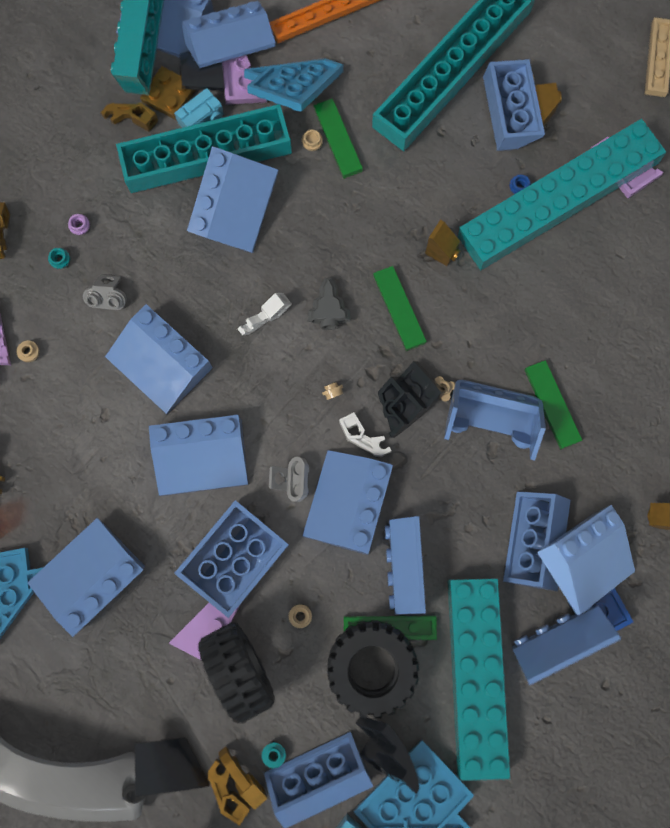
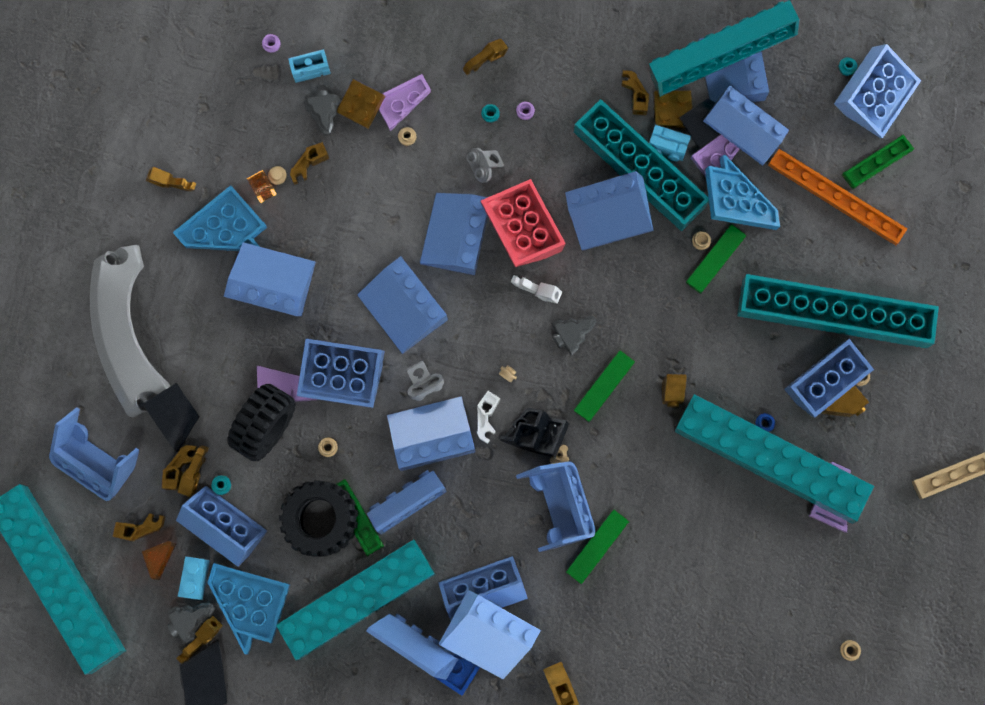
camera: 60 degrees right, 0 degrees up
(193, 286) = (523, 224): none -> coral slope
(388, 753) = (265, 562): black slope -> none

